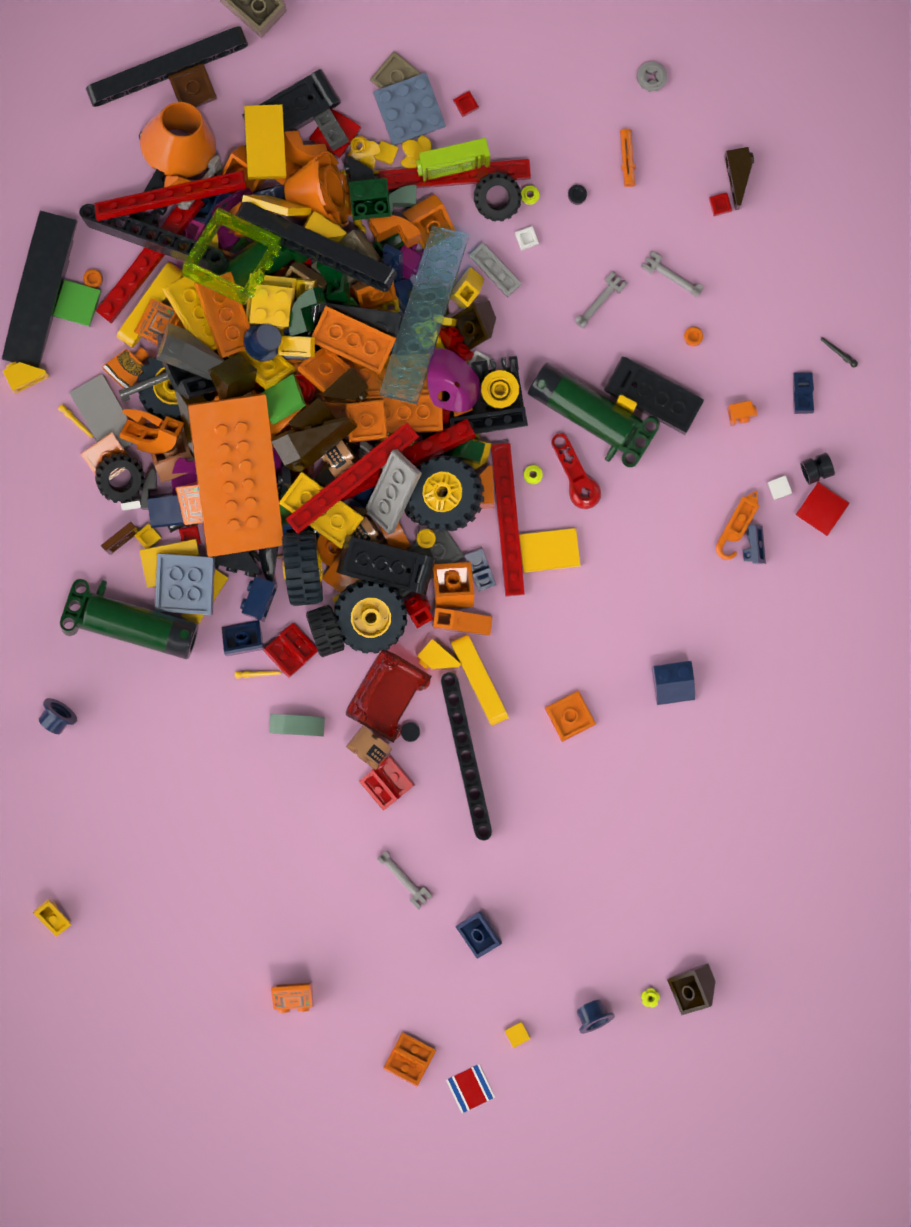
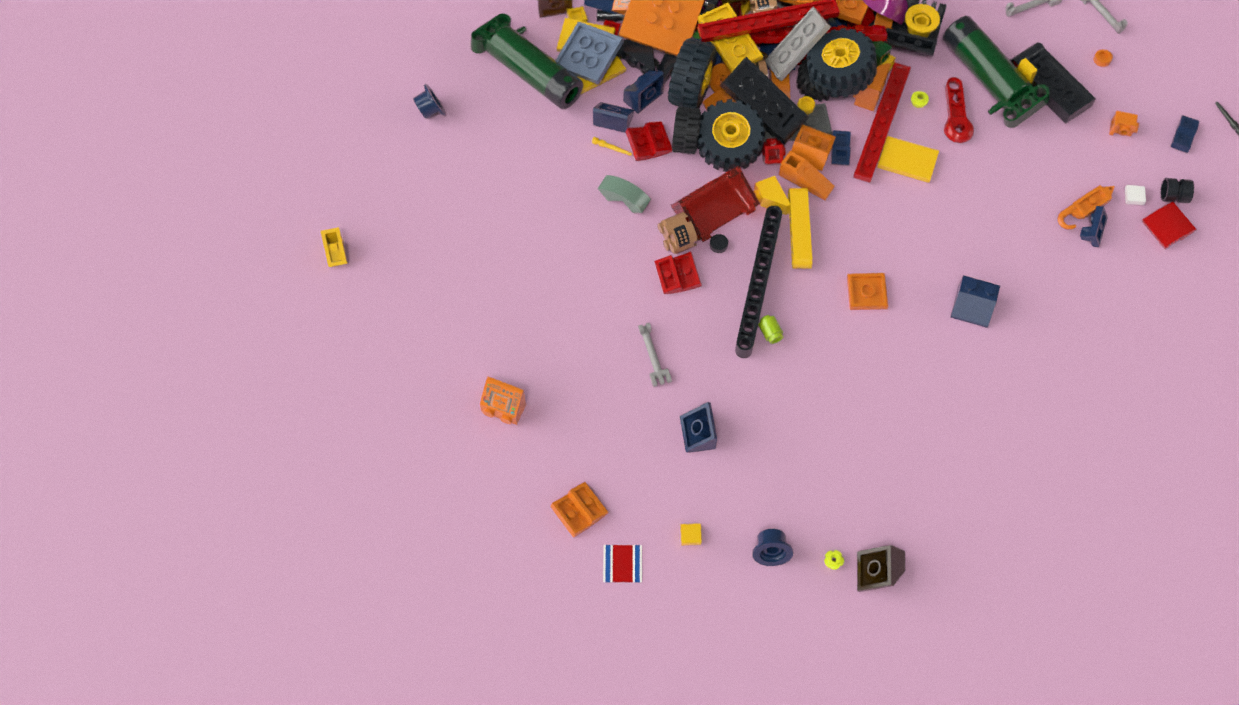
camera: 30 degrees right, 20 degrees down
(499, 801) = (771, 329): none -> lime brick

